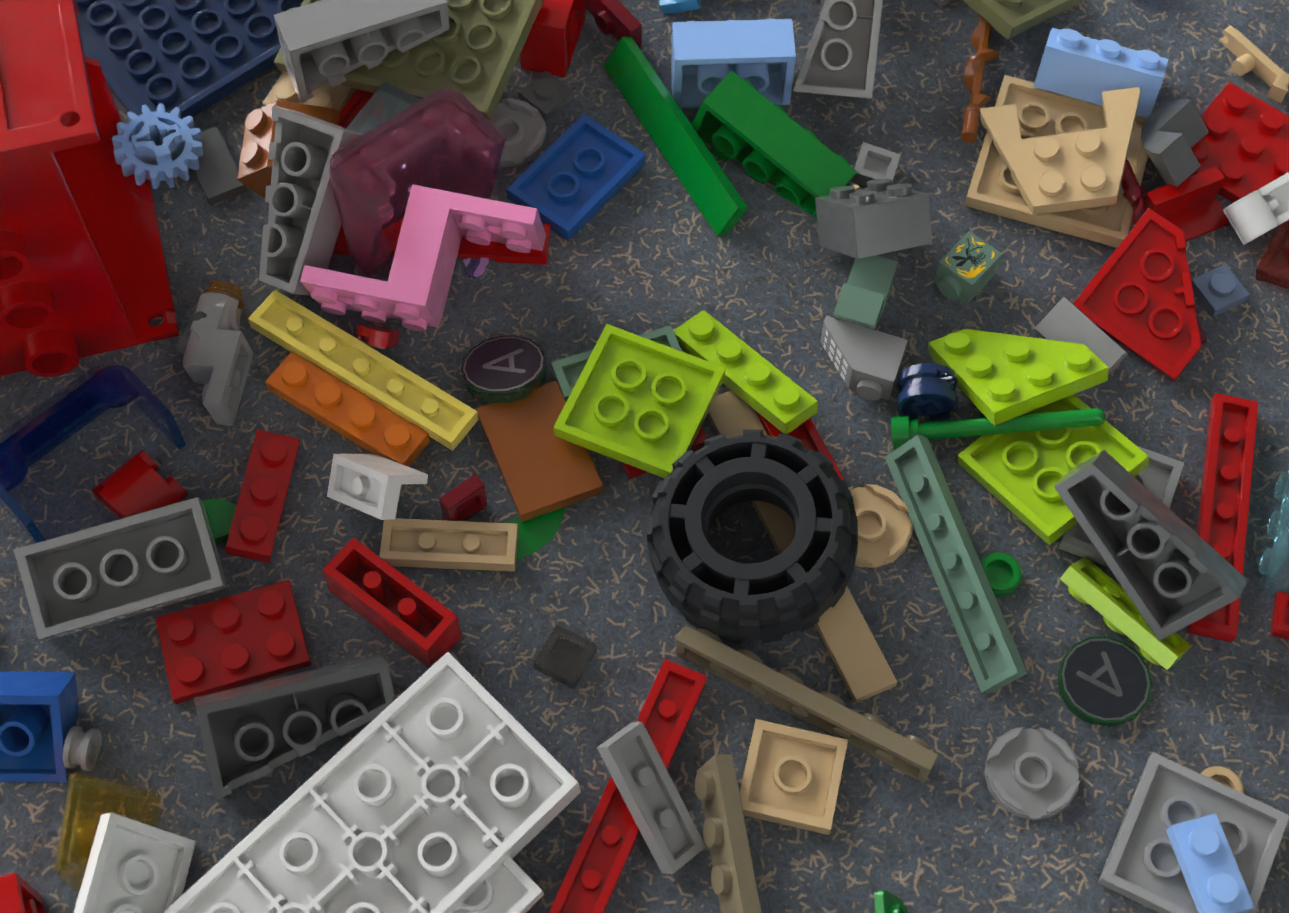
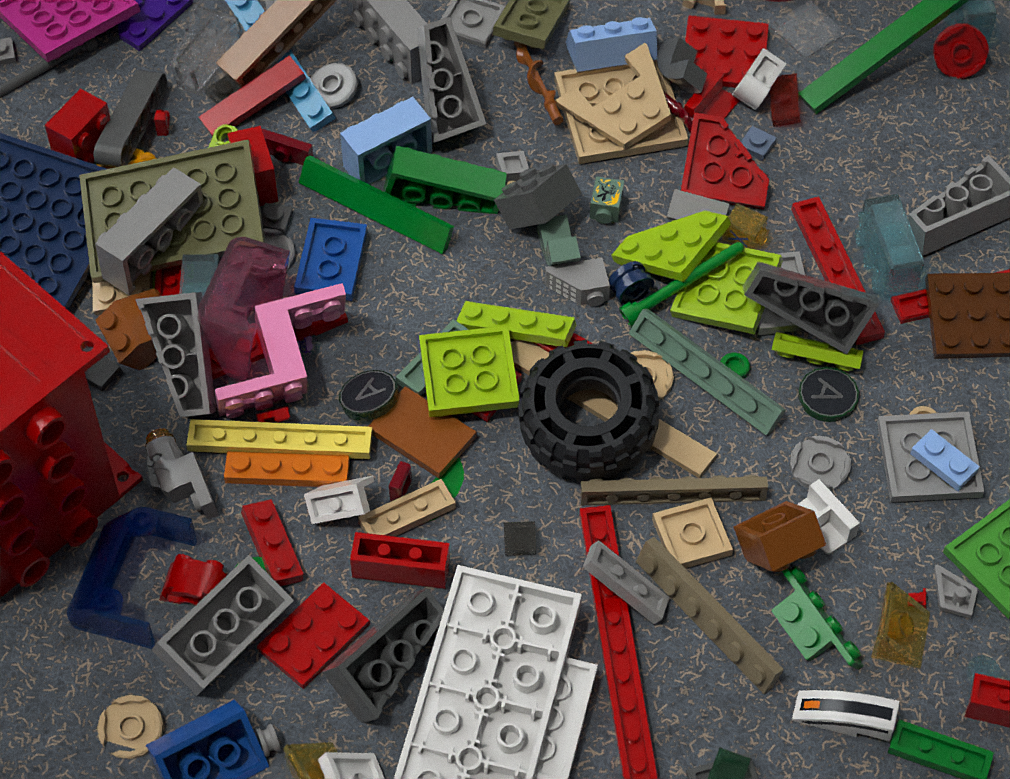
camera: 30 degrees left, 5 degrees down
(901, 851) = (780, 536): none -> dark orange brick
(987, 857) = (833, 517): none -> white panel
(1130, 395) = (746, 227): none -> clear yellow brick

